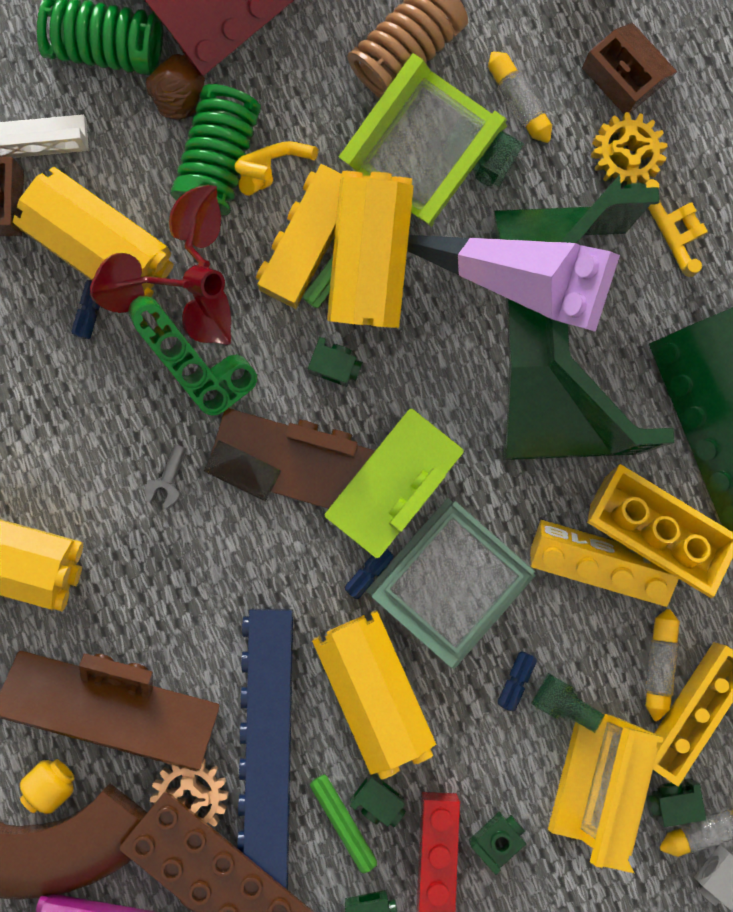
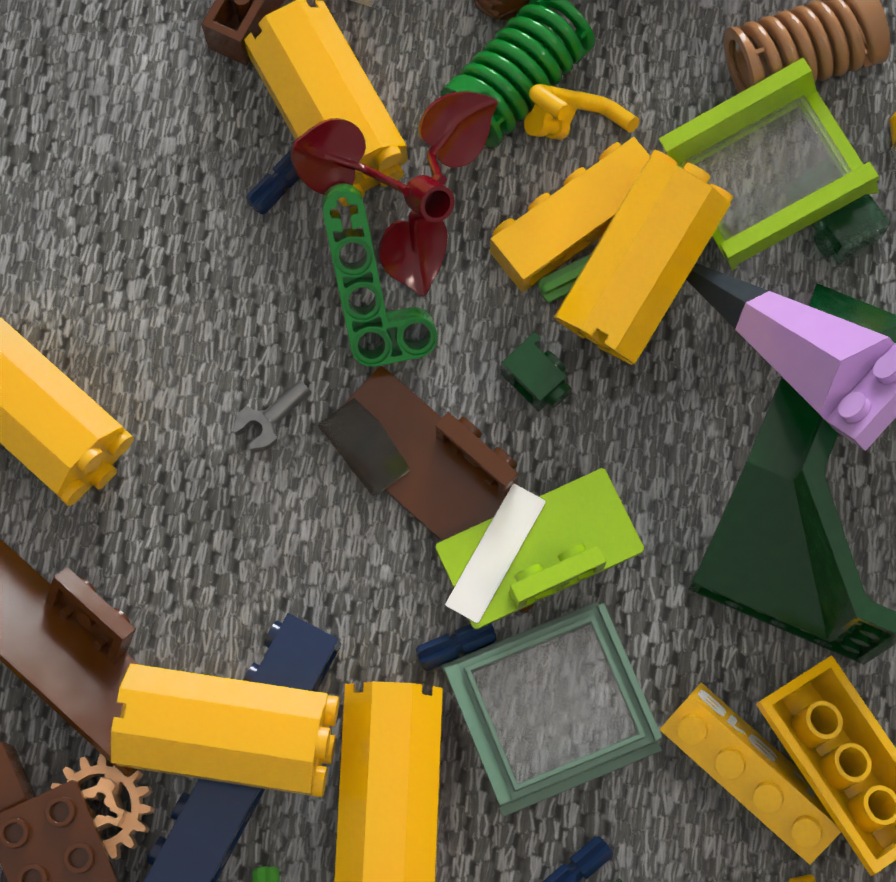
camera: 35 degrees right, 10 degrees down
(249, 715) = (224, 730): none -> yellow brick
(367, 501) = (495, 553): none -> white sticker

